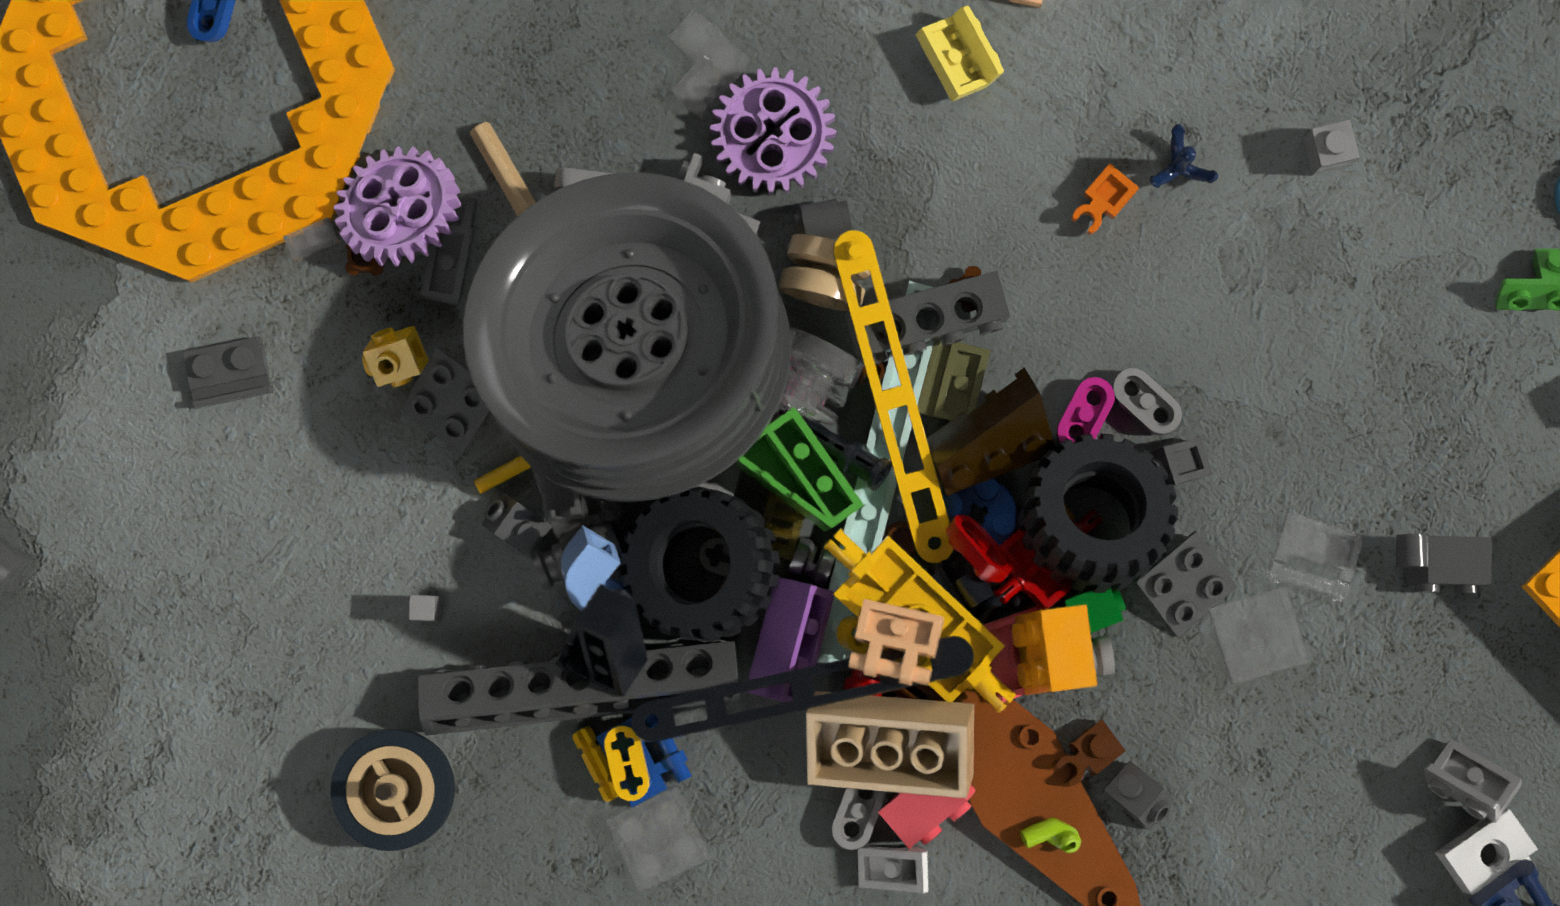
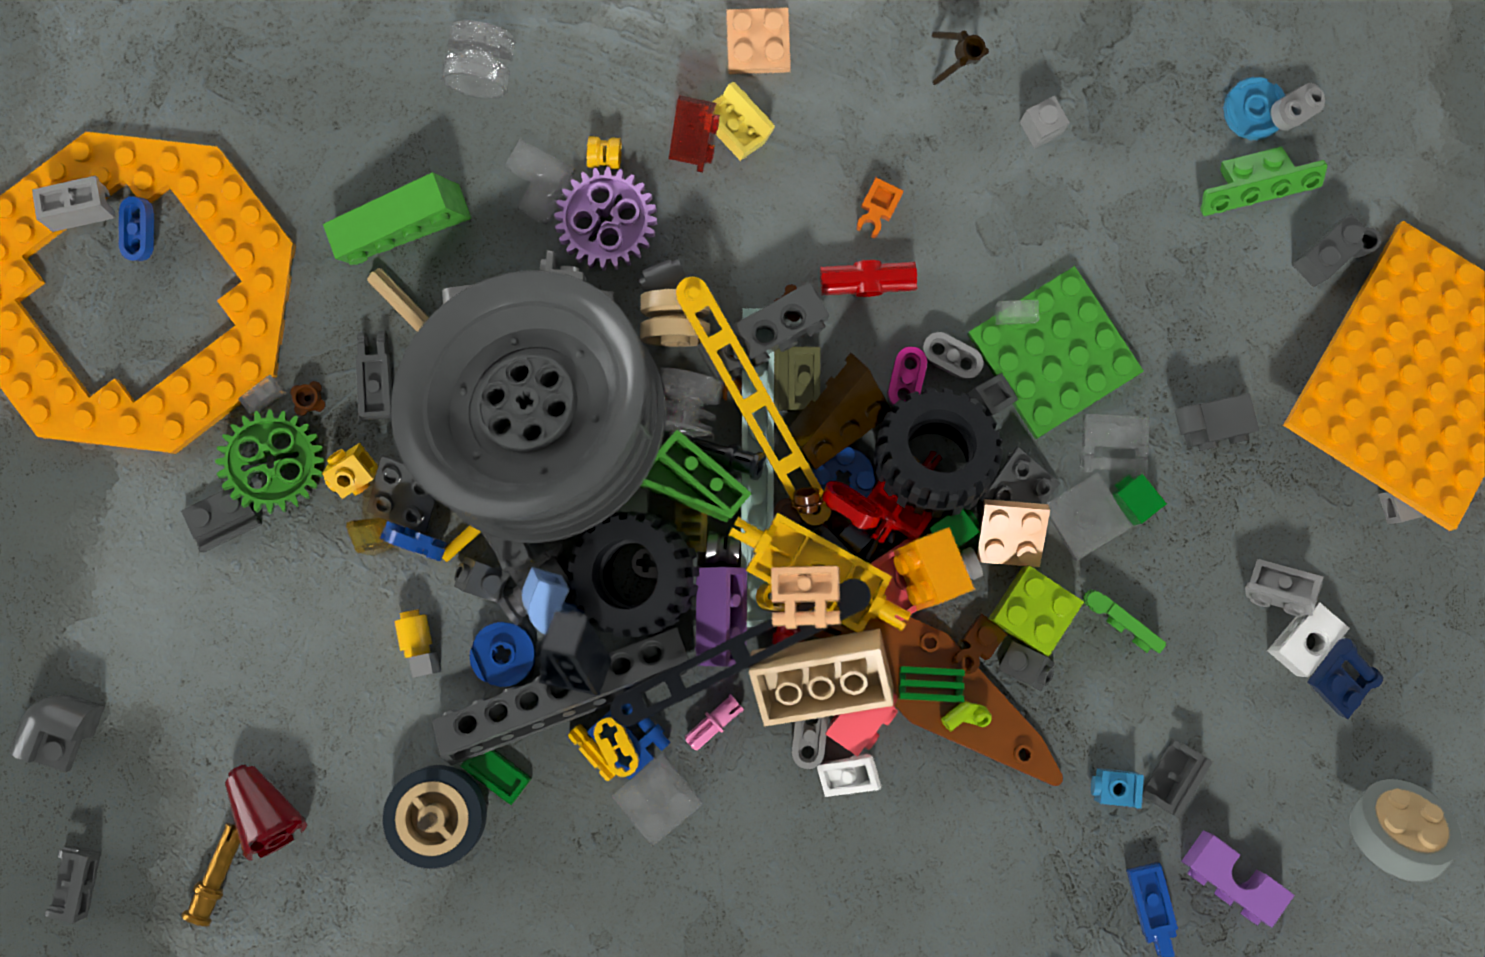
camera: 20 degrees left, 0 degrees up
(107, 807) = (209, 889): none -> pearl gold pin
(191, 732) = (260, 812): none -> dark red cone
(304, 356) = (277, 489): none -> bright green gear
(397, 206) = (322, 351): lavender gear -> none
(400, 440) = (366, 535): none -> clear yellow slope
(420, 568) = (413, 633): none -> yellow brick
(449, 458) = (413, 541): none -> blue plate
(477, 761) = (498, 775): none -> green tile
(501, 606) = (486, 646): none -> blue plate
(524, 70) = (397, 218): none -> bright green wedge
(748, 765) = (713, 723): none -> bright pink axle
(783, 47) = (597, 150): none -> yellow wheel
(903, 54) = (692, 132): none -> clear red bracket
(927, 529) = (807, 500): none -> reddish brown plate
(1051, 796) = (958, 685): none -> green tile
(1069, 282) = (868, 278): none -> red piece
(1162, 632) = (1012, 532): none -> light nougat plate
(1167, 731) = (1036, 610): none -> lime brick
(1181, 162) = (930, 161): dark blue piece -> none
(1237, 369) = (1017, 312): none -> clear piece
(1257, 40) = (967, 51): none -> dark brown plant
(1267, 770) = (1121, 620): none -> bright green hinge
(1273, 428) = (1062, 359): none -> bright green plate
(1324, 629) = (1137, 498): none -> green brick

